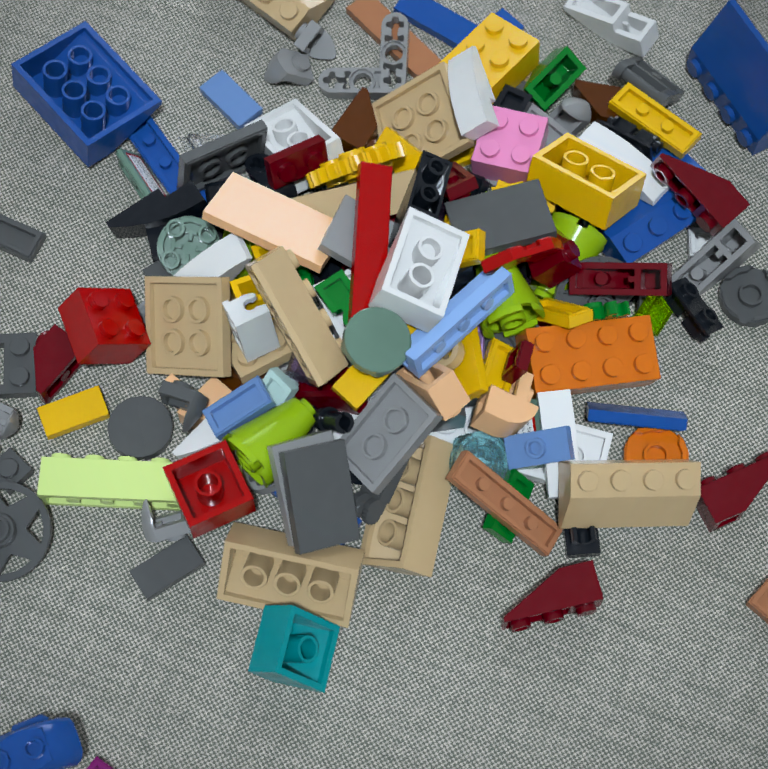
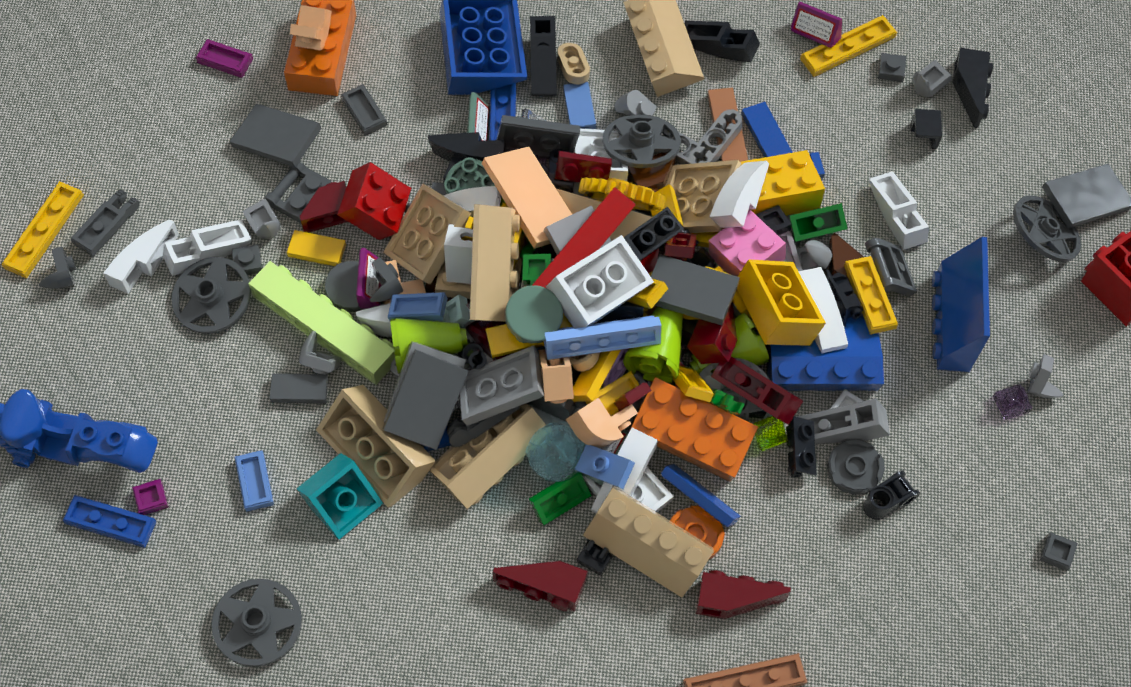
camera: 35 degrees right, 5 degrees down
(158, 68) = (543, 56): none -> black slope
(159, 414) = (366, 281): none -> magenta slope
(194, 692) = (254, 481): none -> medium blue tile
(196, 60) = (573, 63): none -> tan plate
(209, 489) = (356, 348): red brick -> none
(315, 41) = (666, 98): light grey plate -> none
(326, 98) = (641, 140): none -> dark grey wheel
(504, 503) = (554, 490): nougat tile -> none
(515, 255) = (671, 315): red tile -> none
(706, 195) = (865, 369): dark red slope -> none

